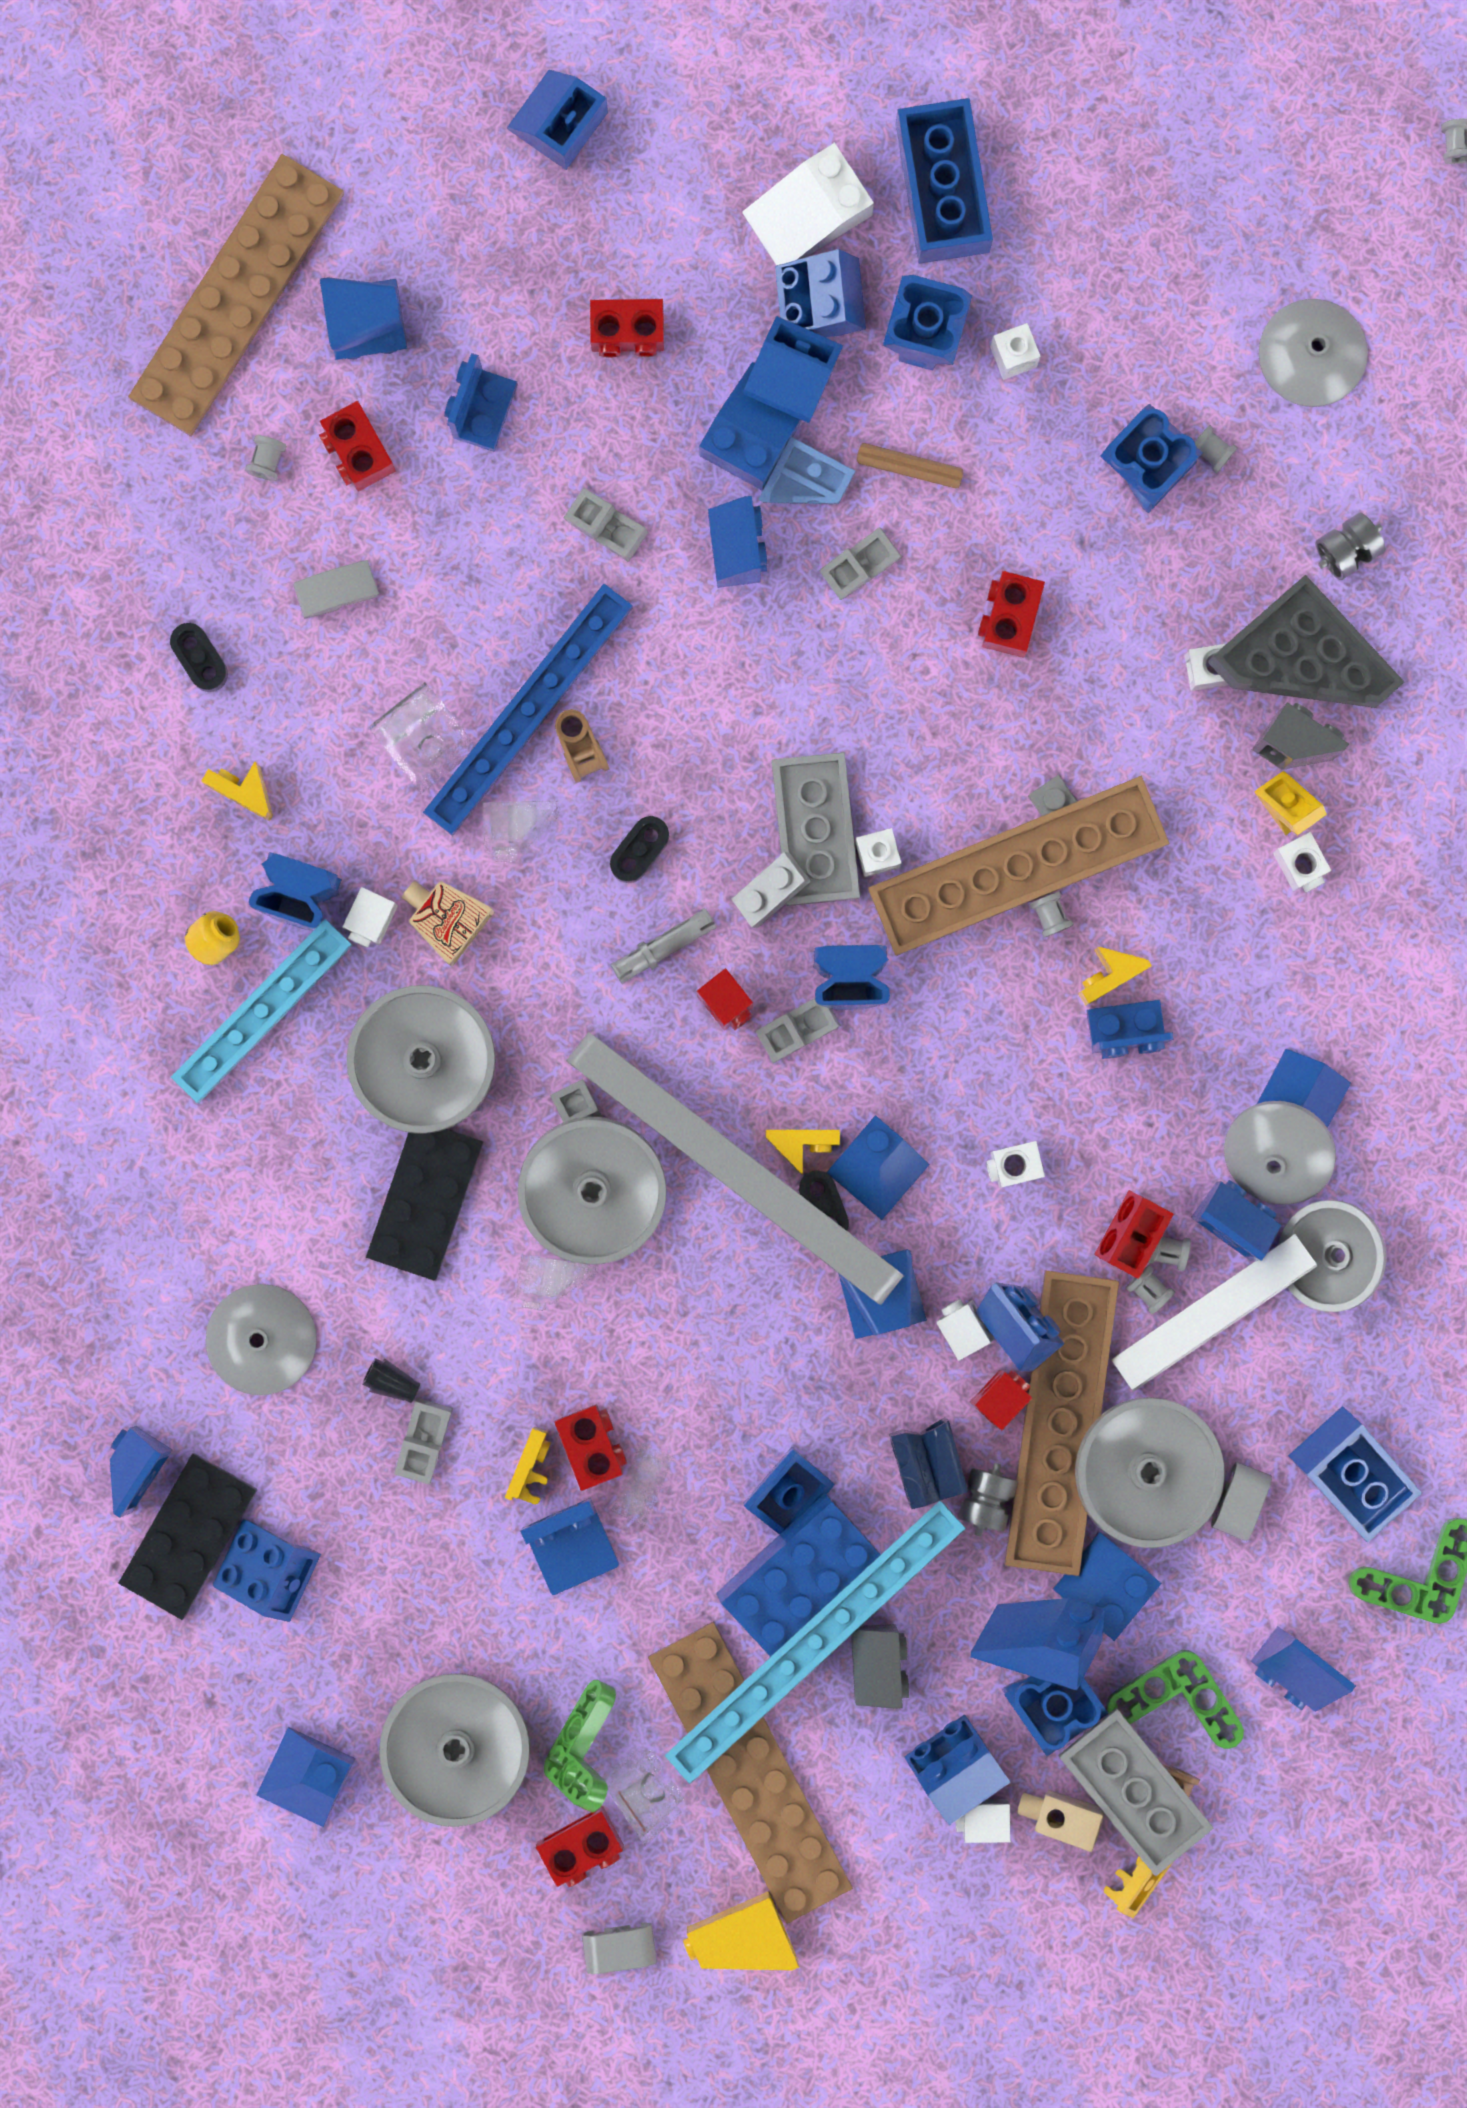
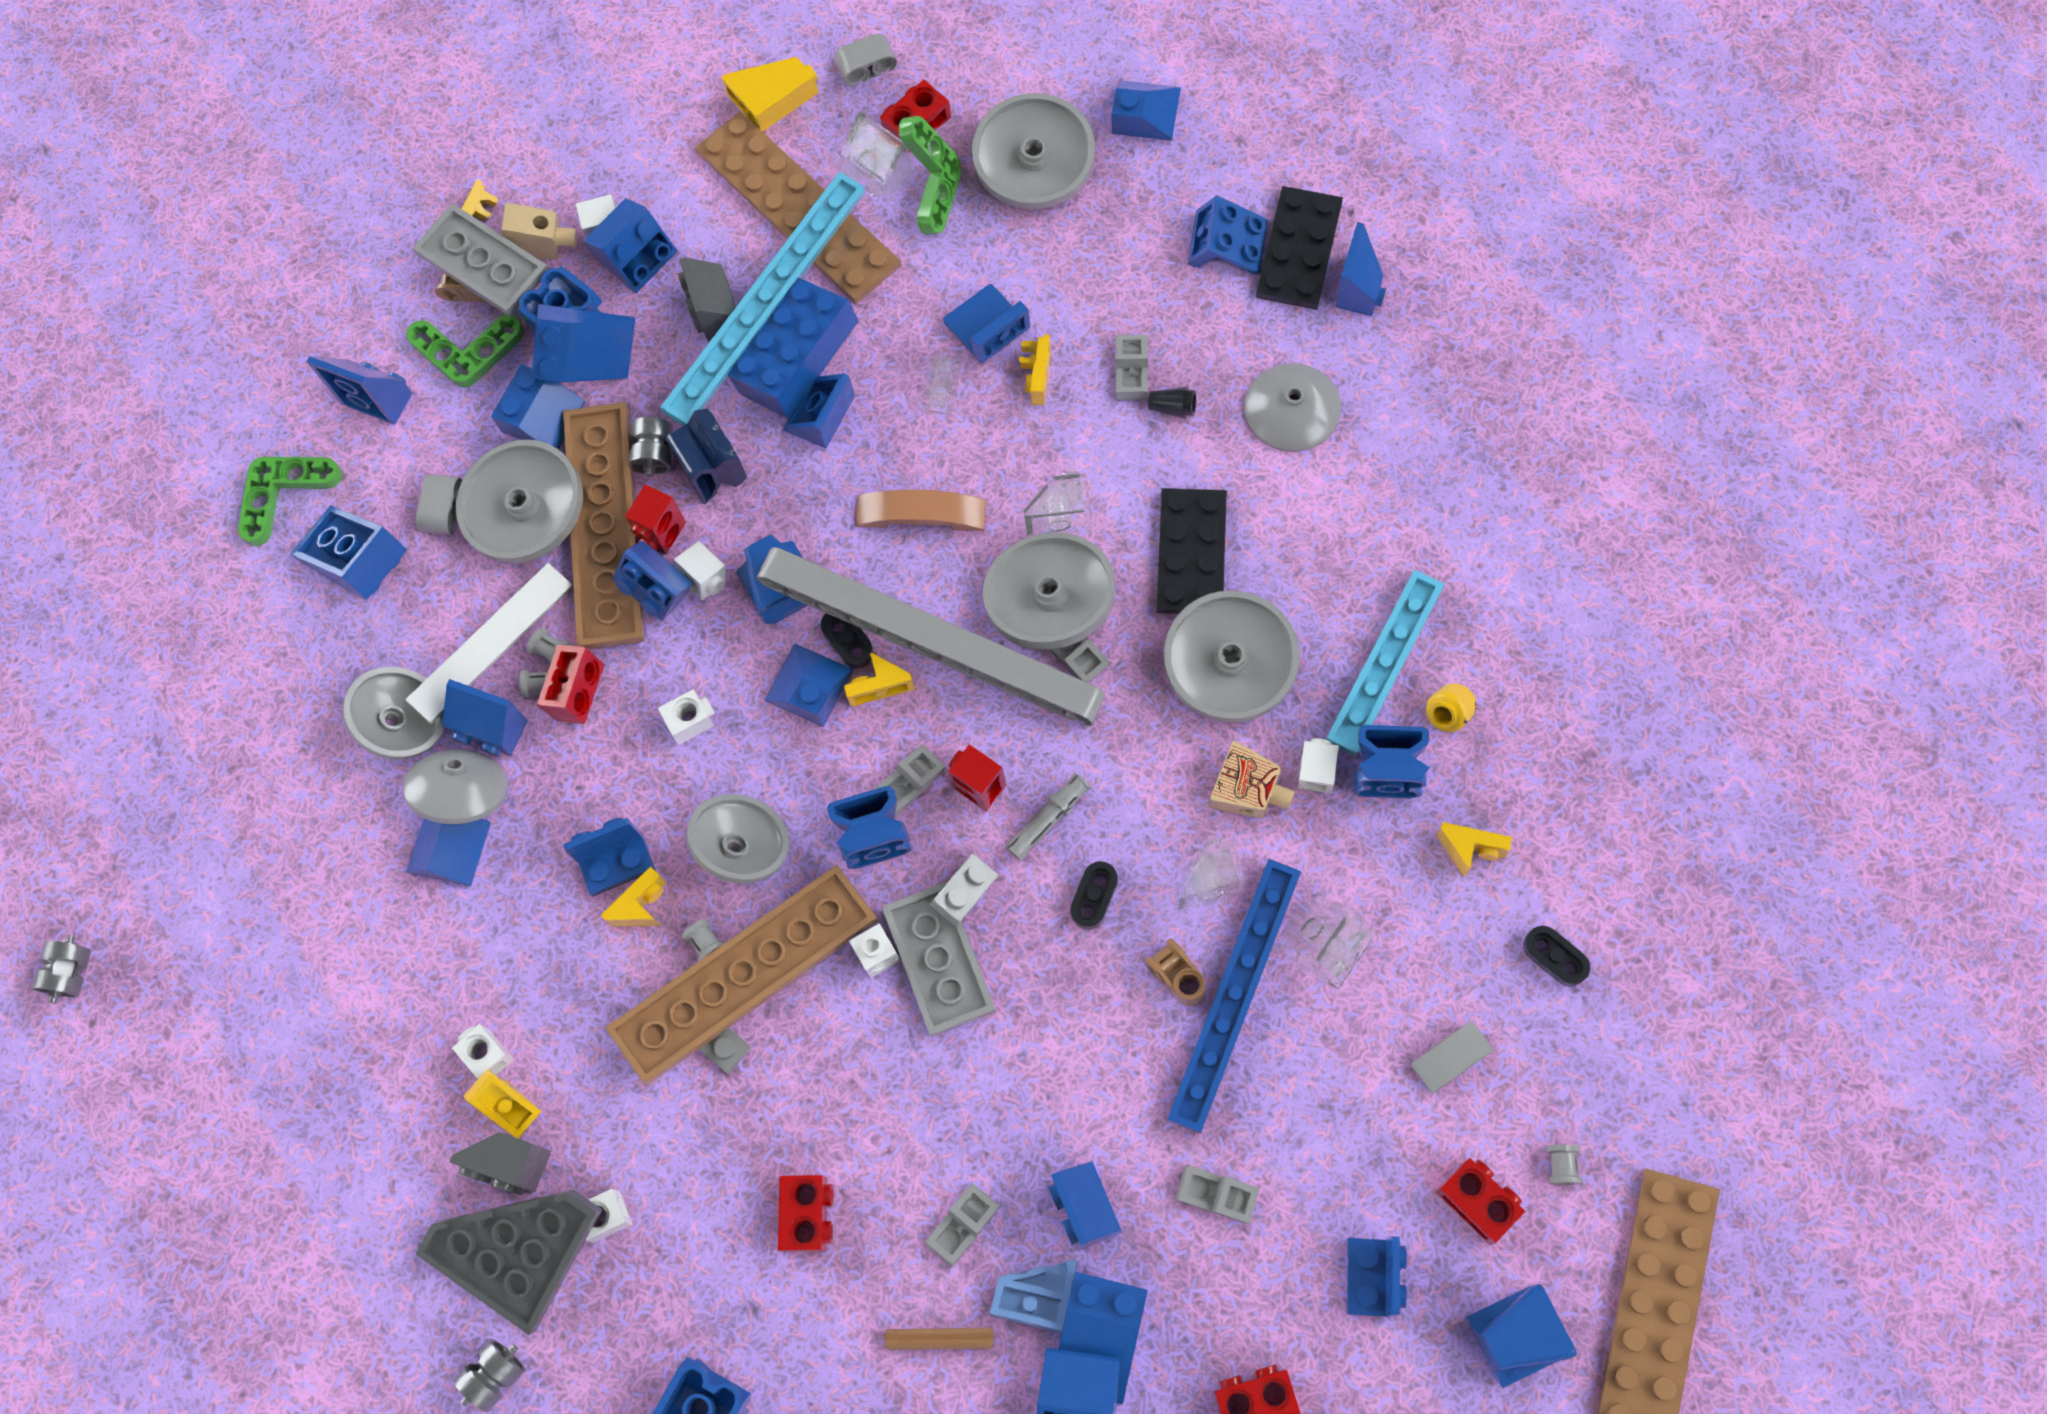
camera: 175 degrees right, 15 degrees down
(581, 1449) = (997, 394): red brick -> none
(706, 1334) = (921, 508): none -> nougat slope
(971, 1012) = (739, 825): none -> light grey dish

